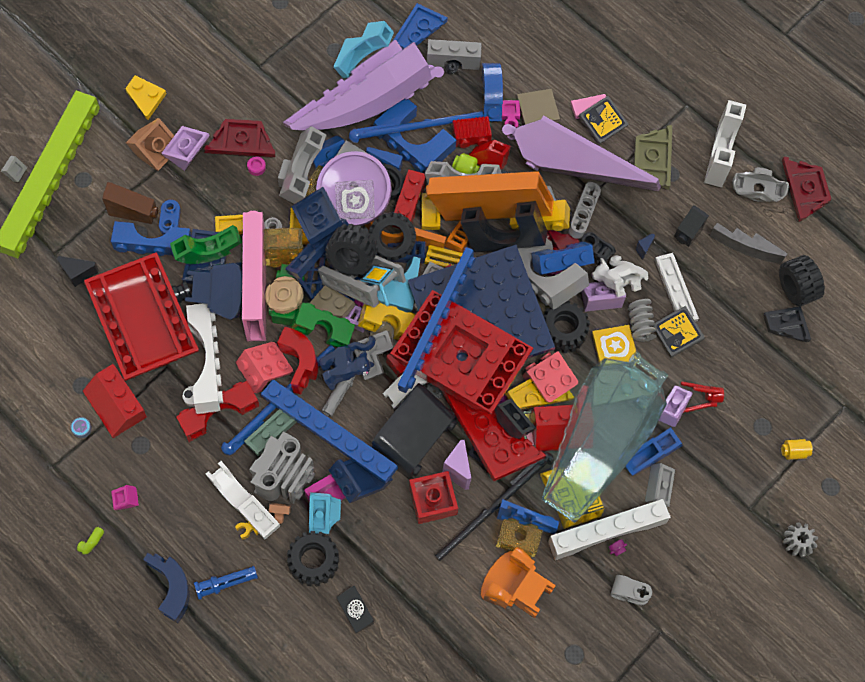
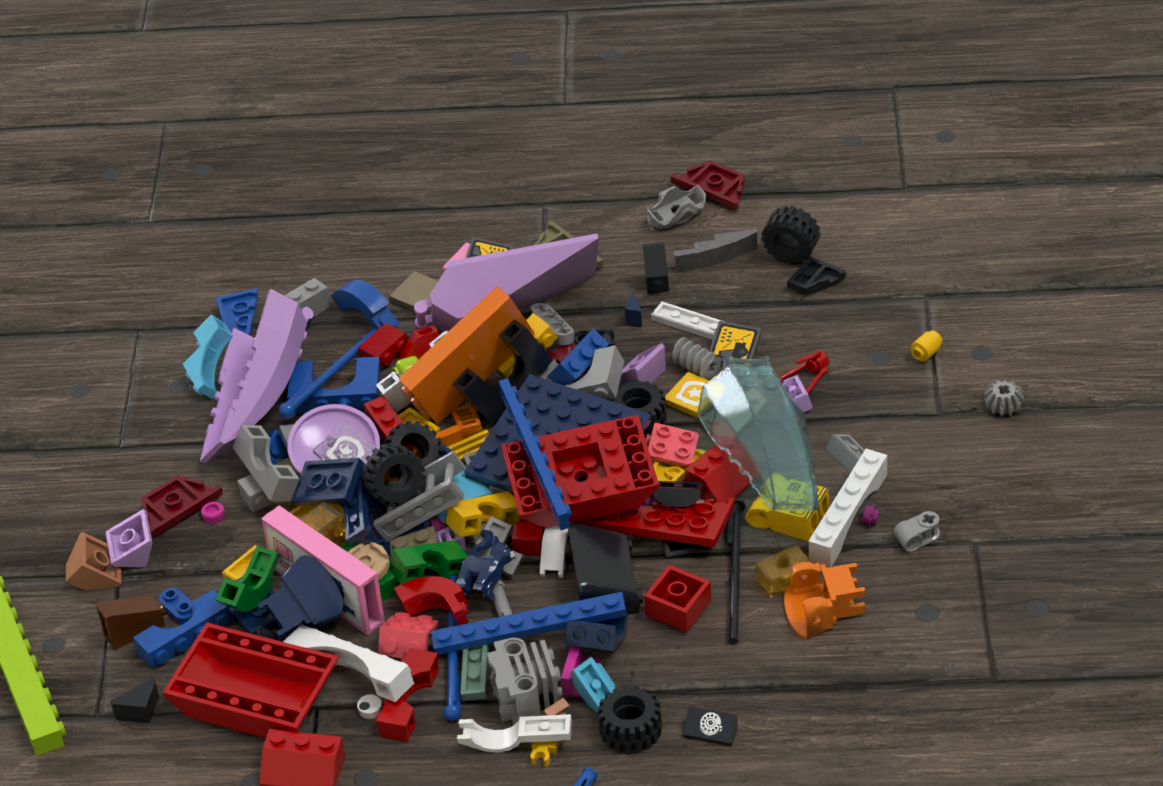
camera: 35 degrees left, 25 degrees down
(145, 95) = (35, 542): yellow wing -> none
(378, 275) = (442, 474): piece -> none
(458, 466) = (674, 552): lavender slope -> none
(511, 112) = (402, 311): dark pink plate -> none
(526, 516) = (765, 546): blue wing -> none
(620, 276) = (642, 336): white animal -> none
(654, 451) = (819, 428): blue slope -> none
(722, 152) = (621, 205): white arch -> none

